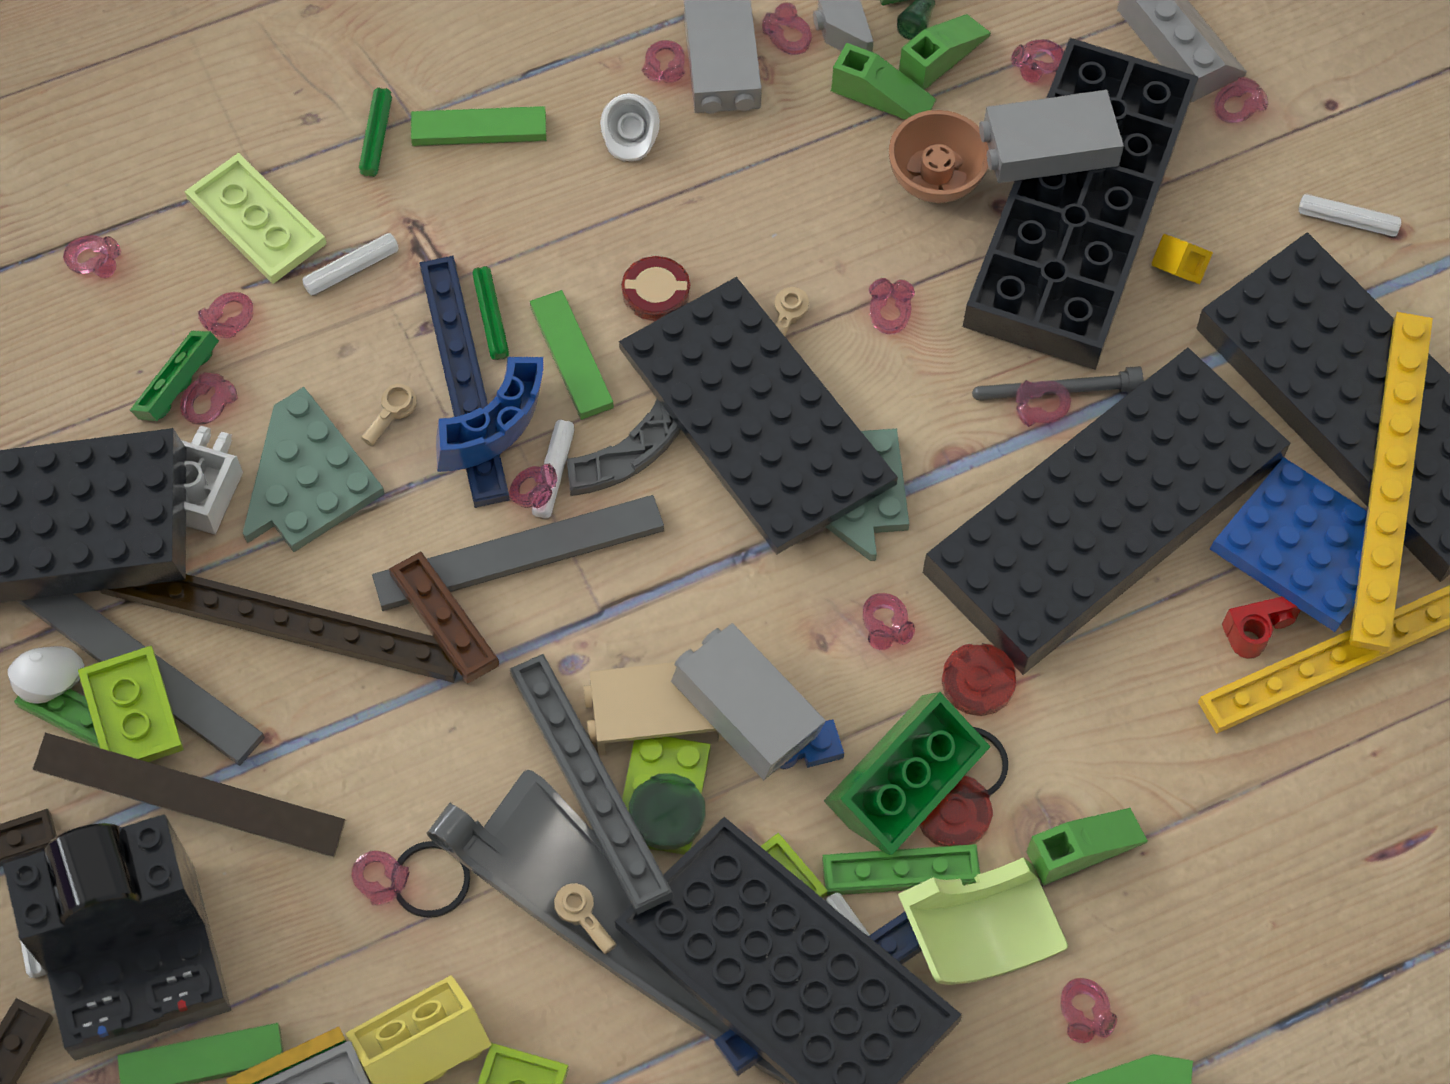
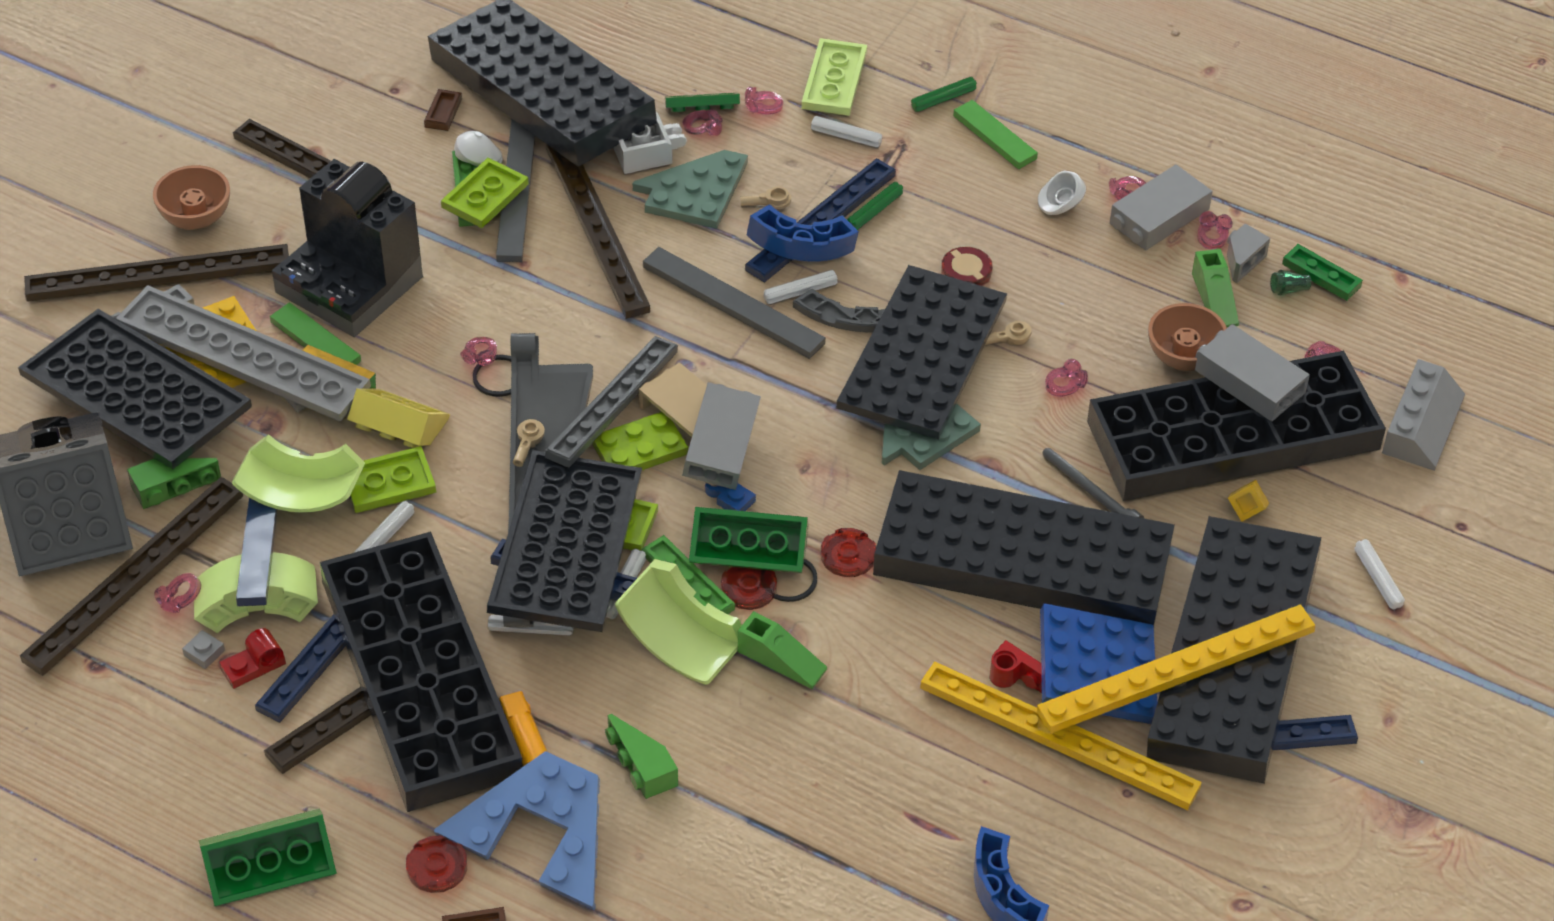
camera: 55 degrees right, 15 degrees down
(102, 264) = (743, 36): clear pink piece -> none
(189, 794) = (456, 243): dark brown tile -> none
(444, 617) = (657, 286): reddish brown tile -> none
(538, 496) = (773, 282): clear pink piece -> none
(571, 354) = (883, 255): bright green tile -> none
(668, 811) = (625, 444): clear green tile -> none
(882, 636) = (844, 497): clear pink piece -> none
(940, 48) = (1272, 301): bright green slope -> none
(1030, 390) = (1066, 469): clear pink piece -> none
(1079, 1027) = (672, 723): clear pink piece -> none
(1256, 102) = (1417, 481): clear pink piece -> none

